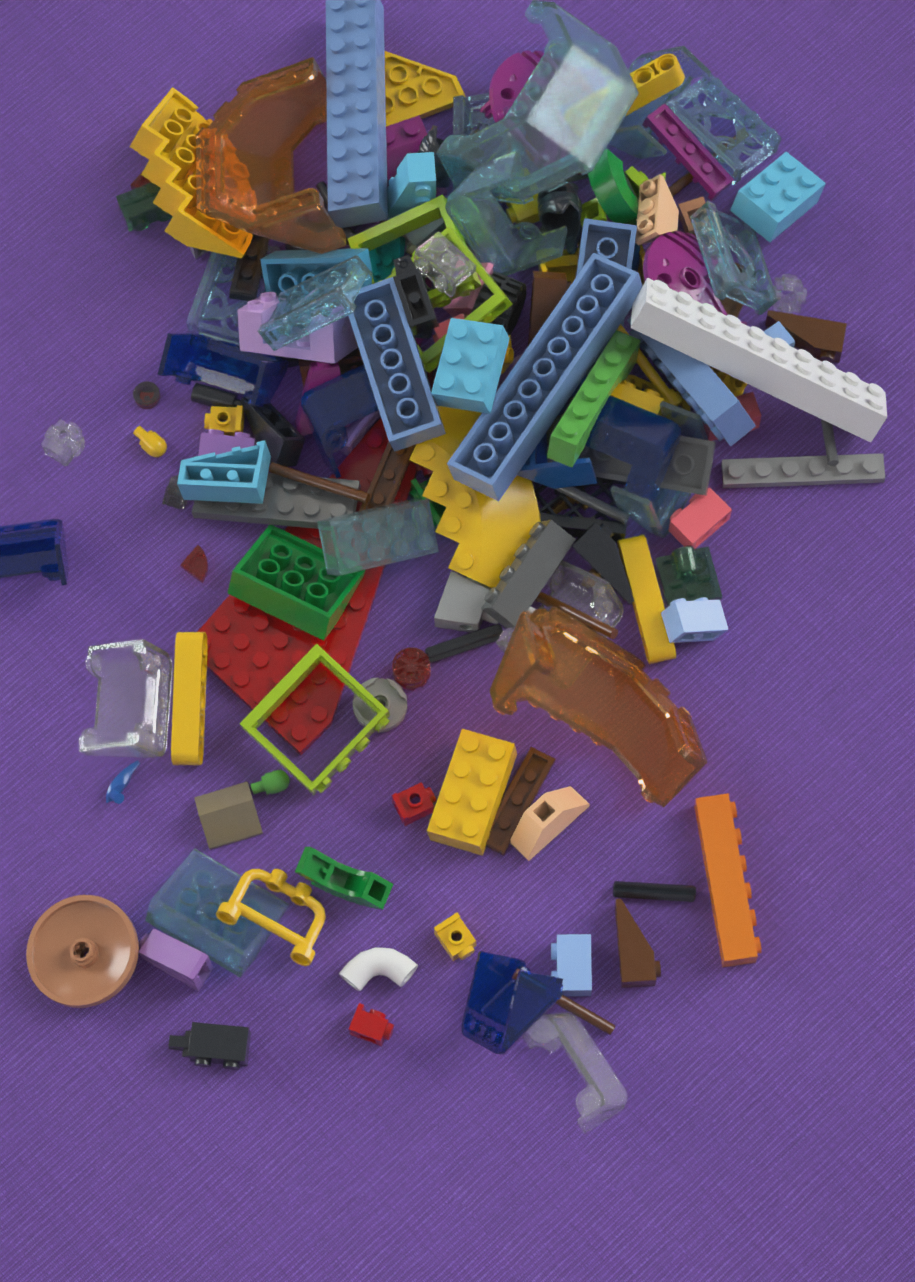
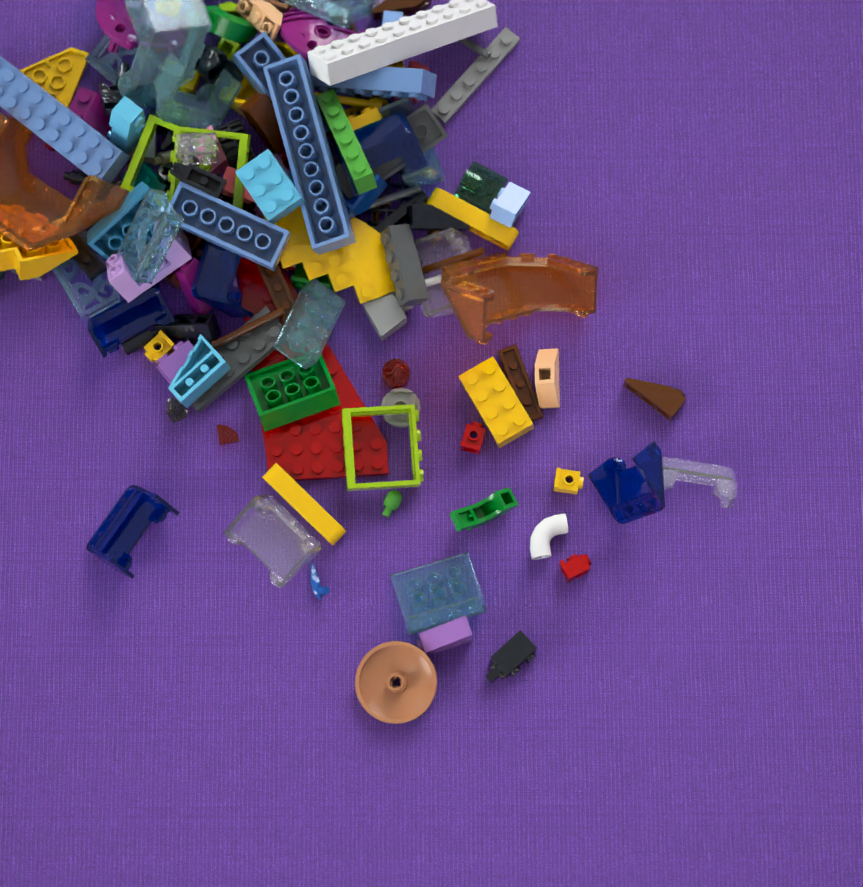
camera: 50 degrees left, 5 degrees up
(63, 442) = (87, 444): clear brick -> none
(146, 395) = (100, 376): clear smoke tile -> none
(151, 442) = (131, 398): yellow cylinder -> none
(228, 815) = (388, 540): dark tan slope -> none
(300, 895) = (449, 547): yellow bar -> none
(464, 643) = (407, 333): black axle -> none
(573, 963) = (636, 432): light blue brick -> none
(581, 1012) = (665, 452): reddish brown bar -> none
(654, 891) = (635, 358): black axle -> none
(699, 519) = (454, 152): coral brick -> none
(726, 881) = (663, 316): orange brick -> none

